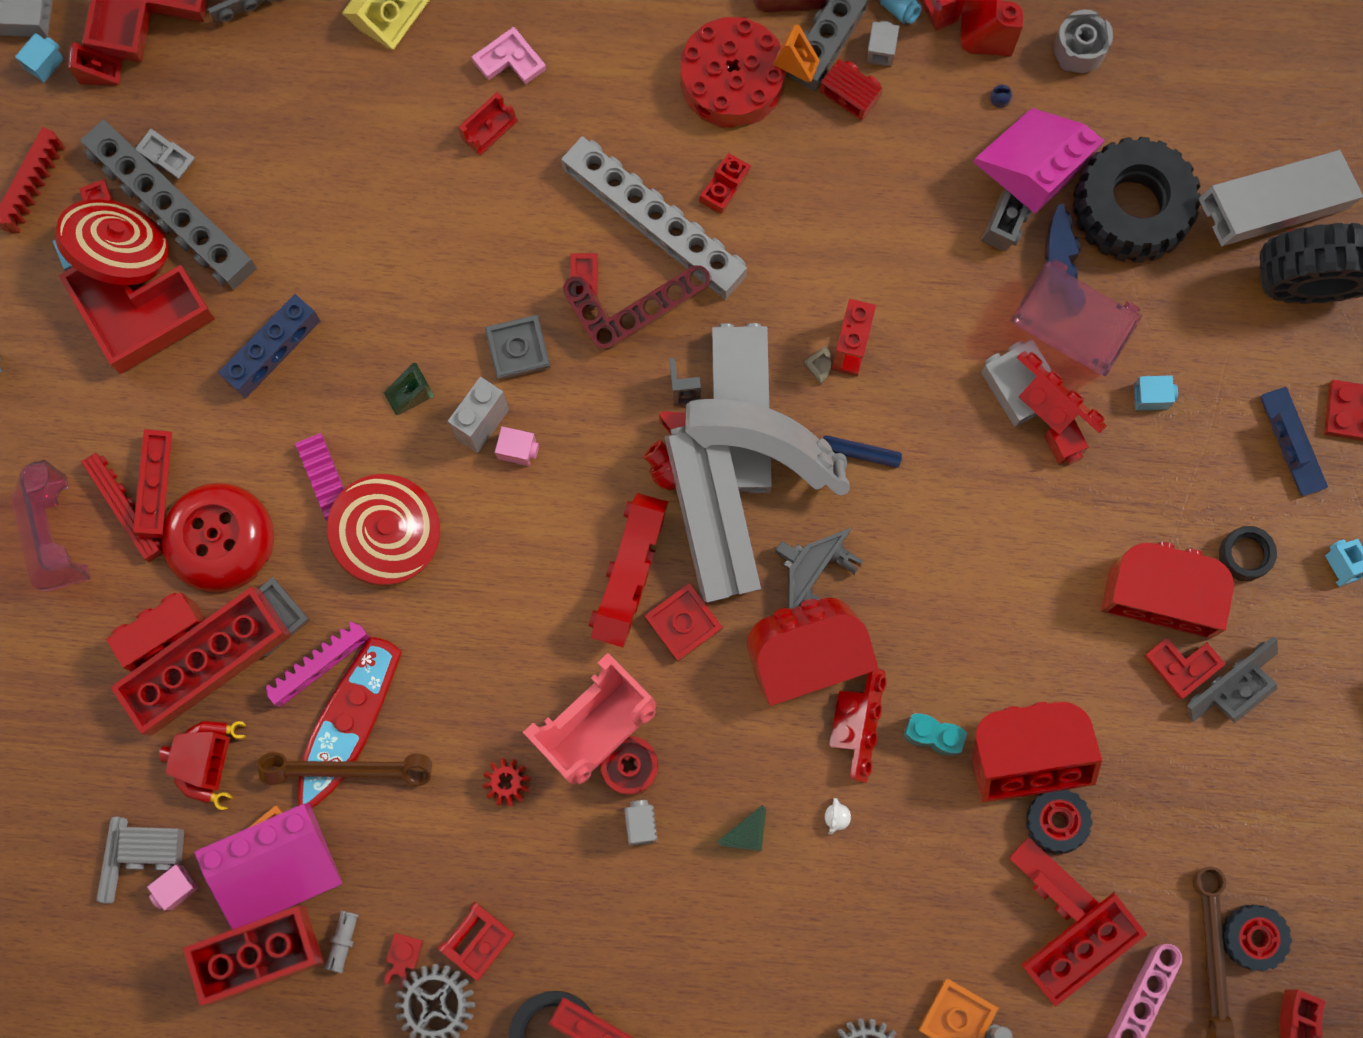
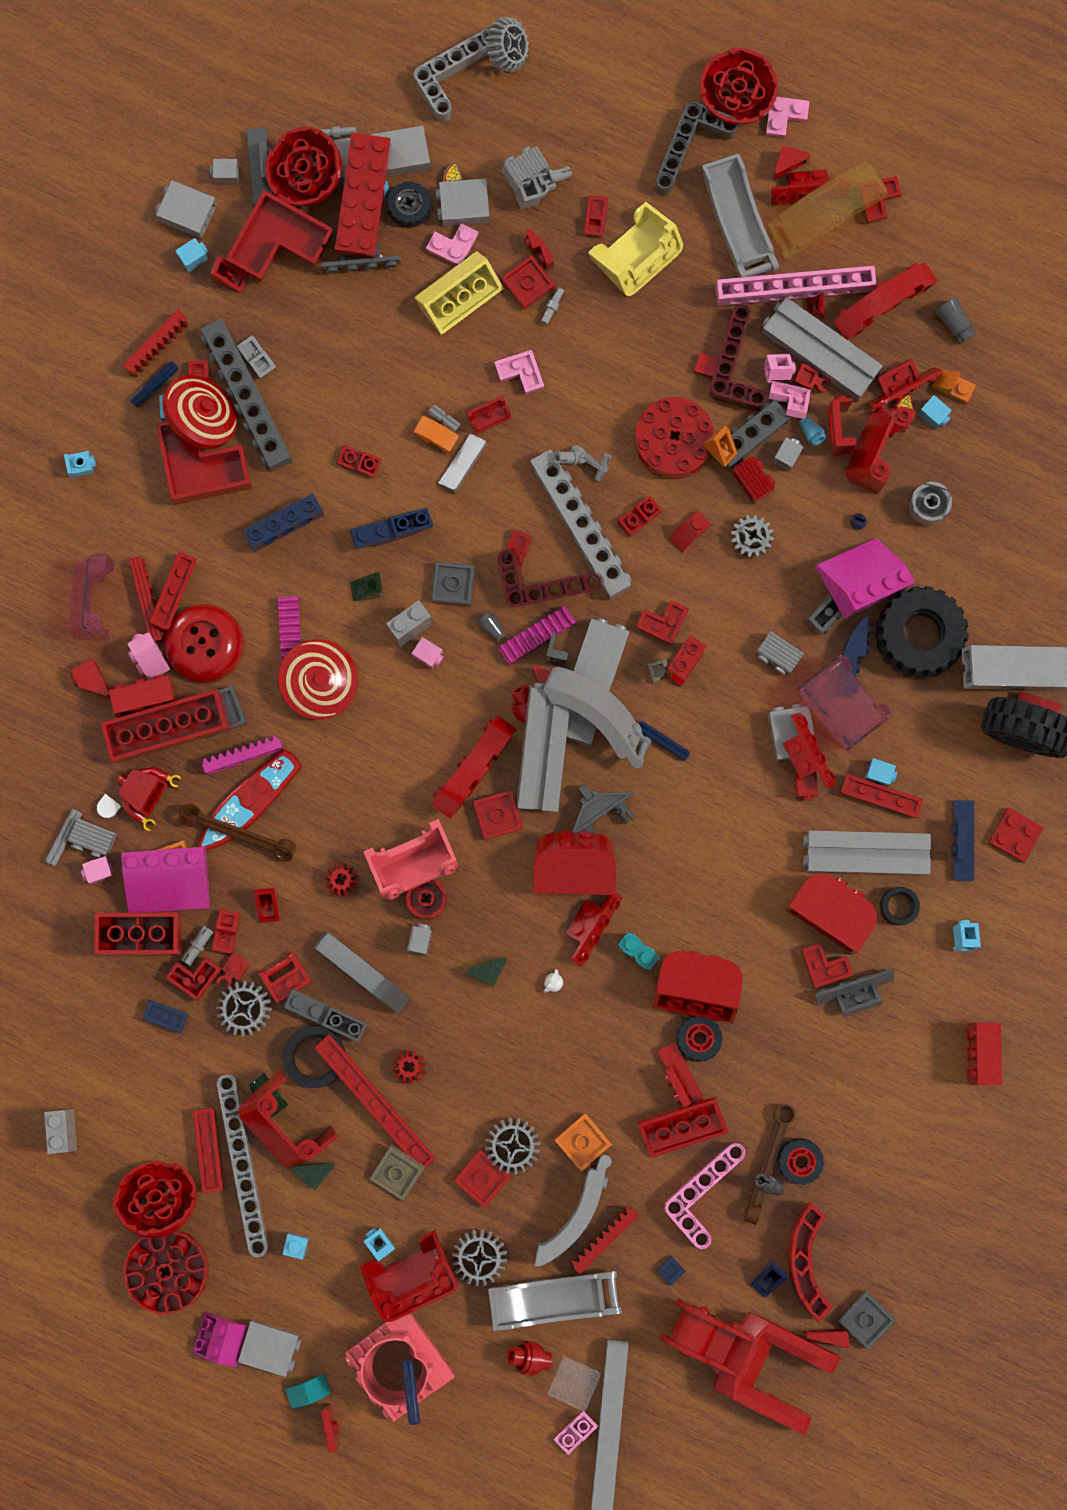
camera: 15 degrees right, 5 degrees up
(43, 232) = (152, 385): none -> dark blue axle
(79, 635) = (90, 678): none -> red slope
(146, 577) = (148, 655): none -> bright pink brick
(159, 798) = (108, 807): none -> white tile
(342, 239) = (359, 462): none -> red slope
(356, 994) = (194, 983): none -> red brick
(375, 909) = (225, 932): none -> red slope
(414, 307) = (393, 529): none -> dark blue slope
(418, 851) = (267, 905): none -> red slope
(428, 168) = (435, 433): none -> orange slope
(438, 149) = (441, 416): none -> light grey piece
(476, 194) = (463, 463): none -> slope
(548, 973) = (325, 1015): none -> dark grey slope
(578, 896) = (362, 972): none -> beam
(586, 383) = (491, 626): none -> dark grey cone
(621, 134) = (578, 455): none -> light grey pin
(648, 376) = (536, 635): none -> dark pink gear
(689, 1013) = (409, 1059): none -> red gear
(795, 179) = (689, 531): none -> red slope
(808, 309) = (666, 627): none -> red plate
(863, 155) = (746, 531): none -> light grey gear
(967, 290) = (779, 654): none -> light grey brick
(1167, 422) = (881, 796): none -> red plate
(1179, 500) = (867, 853): none -> light grey brick
(1231, 984) = (770, 1184): none -> dark grey pin

